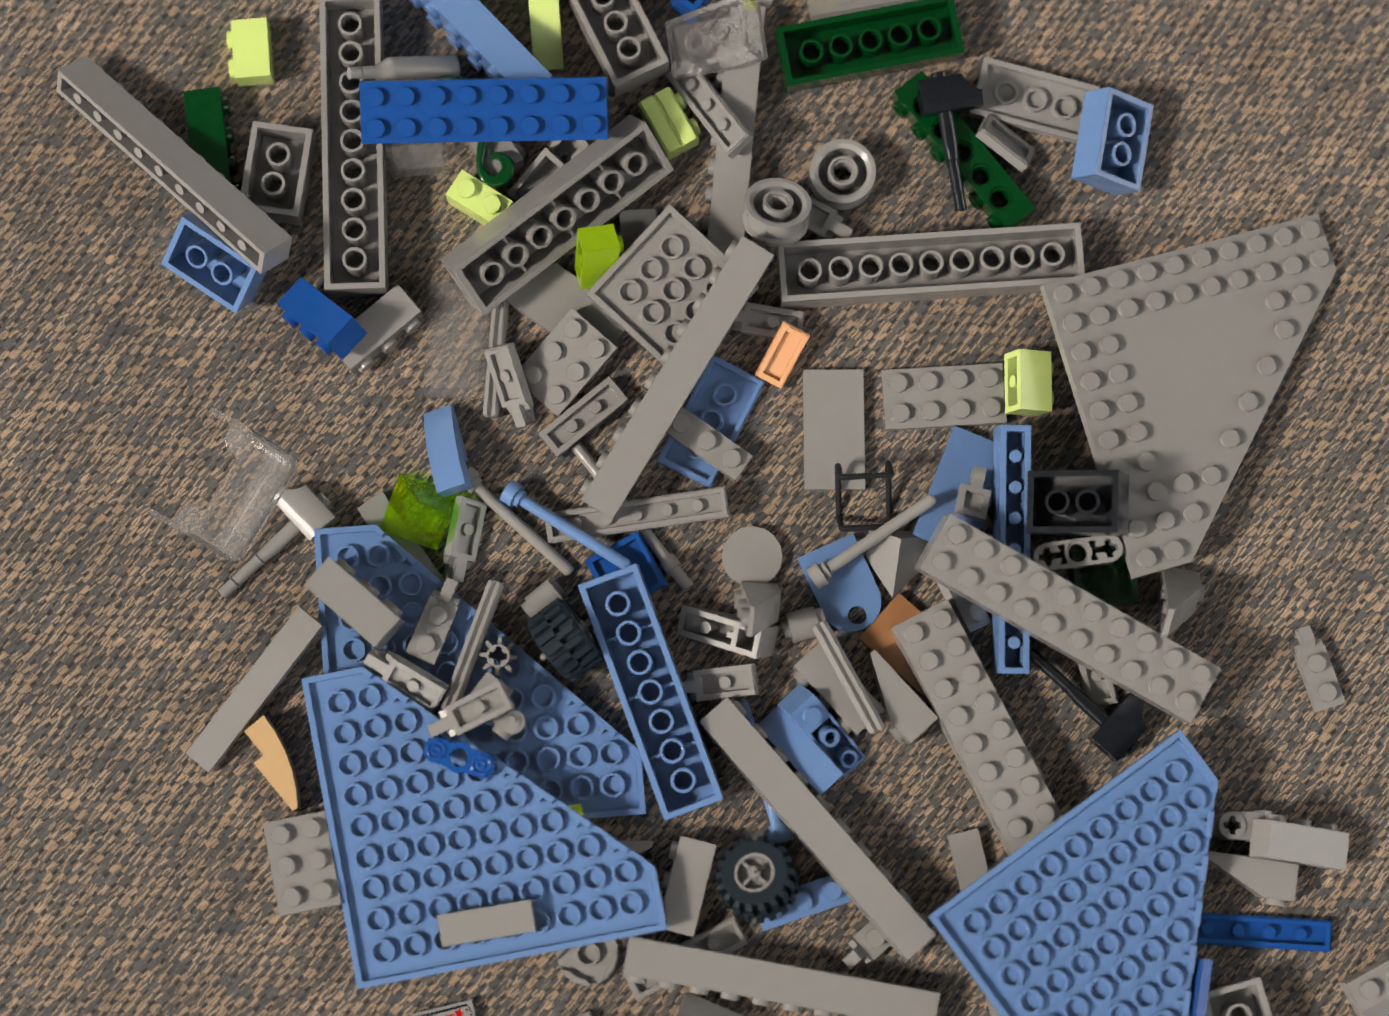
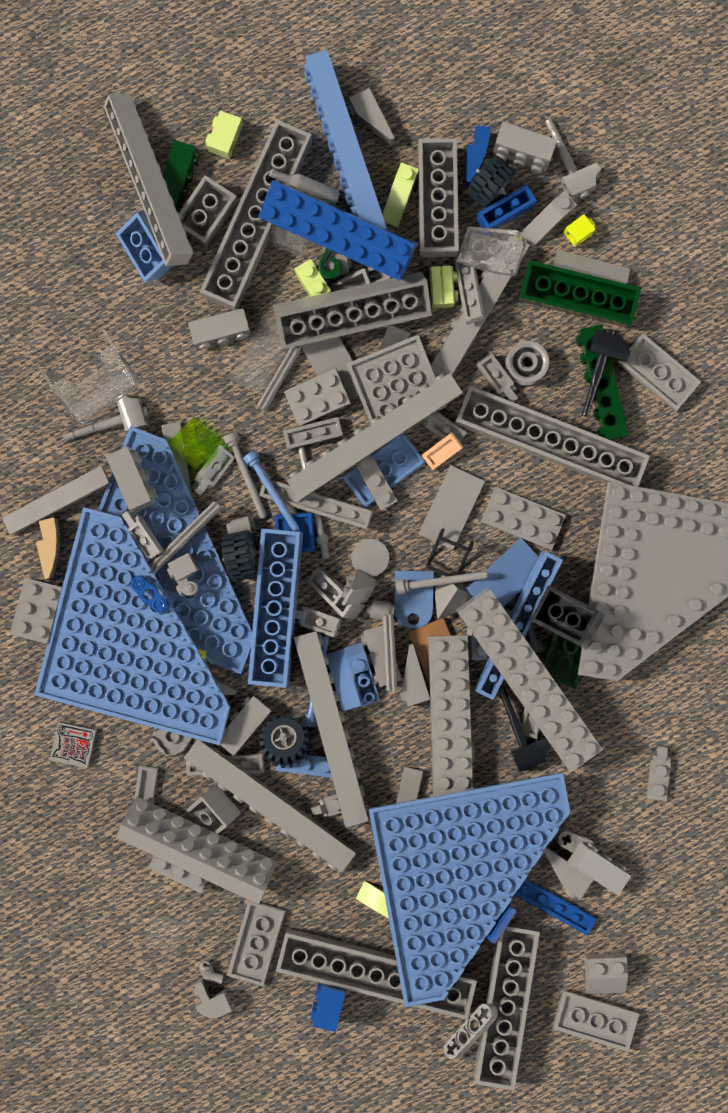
camera: 30 degrees right, 5 degrees up
(320, 319) = (189, 308): blue brick -> none
(435, 623) = (172, 511): light grey hinge -> none
(446, 451) = (225, 416): medium blue slope -> none
(472, 710) = (168, 571): light grey hinge -> none
(486, 922) = (121, 693): light grey tile -> none
(493, 649) = (194, 549): light grey gear -> none
(511, 383) = (280, 394): light grey hinge -> none
(596, 252) = (364, 342): lime brick -> none
(776, 211) = (477, 367): light grey wheel -> none
(973, 498) = (510, 585): light grey plate -> none
(1005, 142) = (630, 388): light grey tile -> none
(1028, 382) = (575, 533): yellowish green brick -> none
(1101, 558) = (569, 644): light grey beam -> none
(1112, 141) = (692, 417): medium blue brick -> none
(1178, 597) = (599, 697): light grey slope -> none

